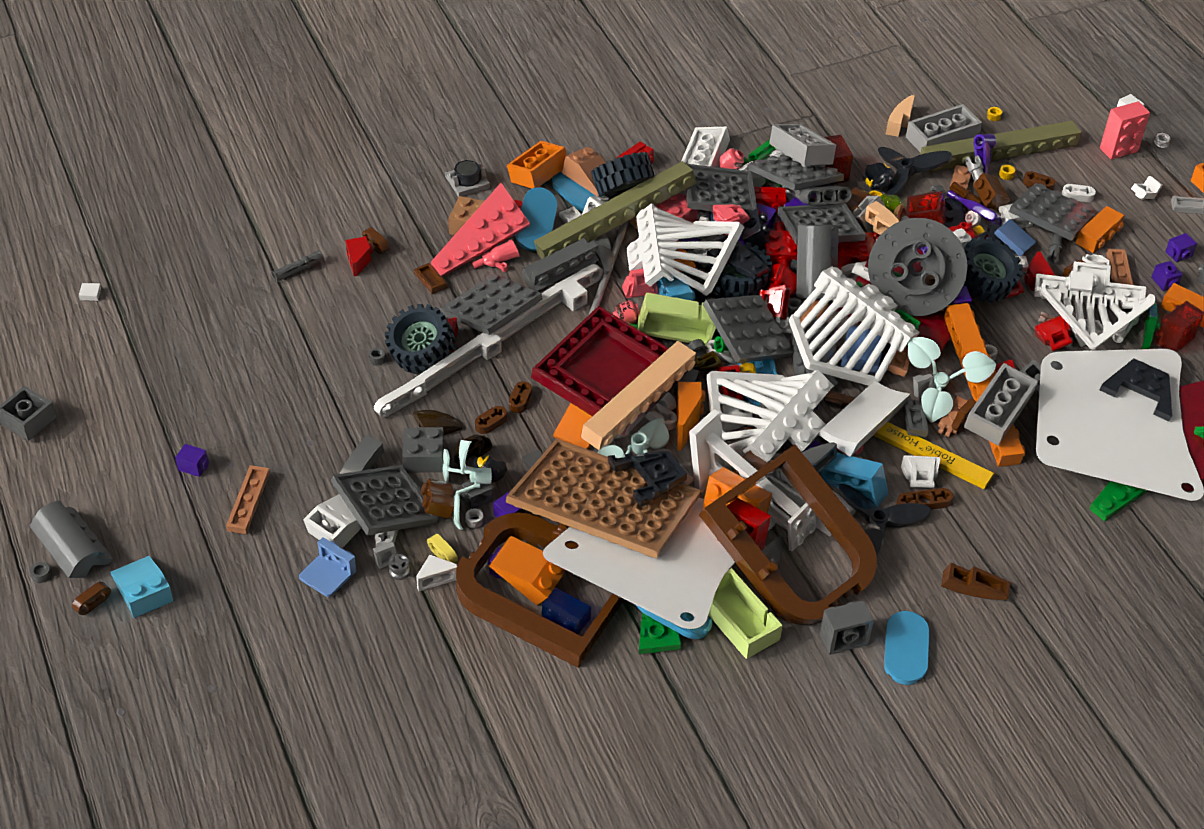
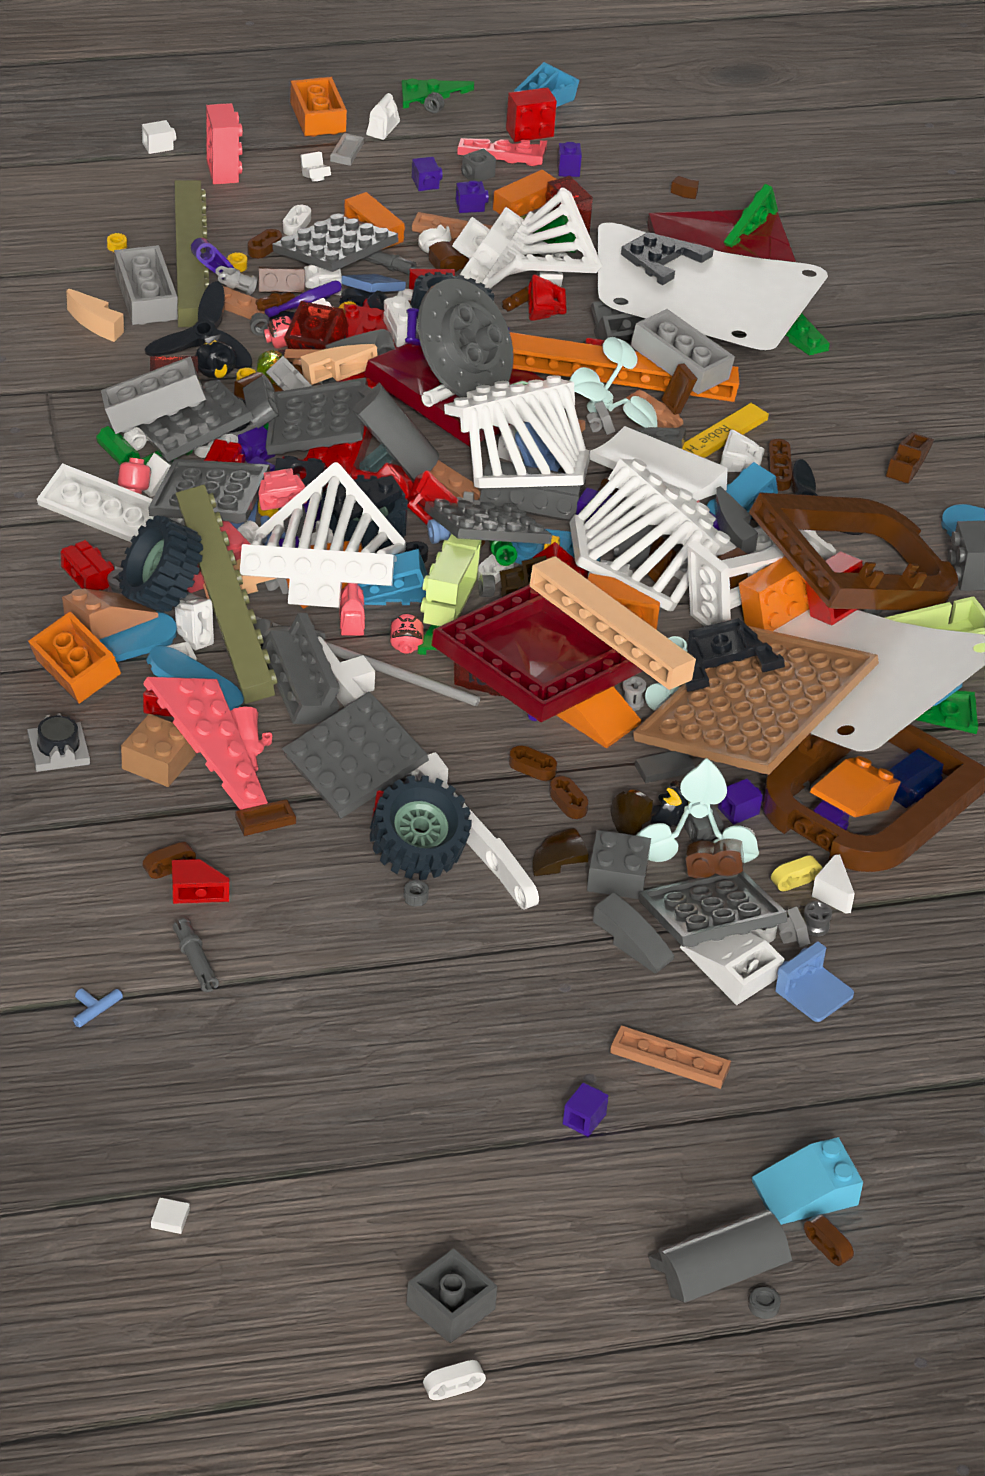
camera: 80 degrees left, 5 degrees down
(251, 234) = (94, 1006): none -> medium blue piece

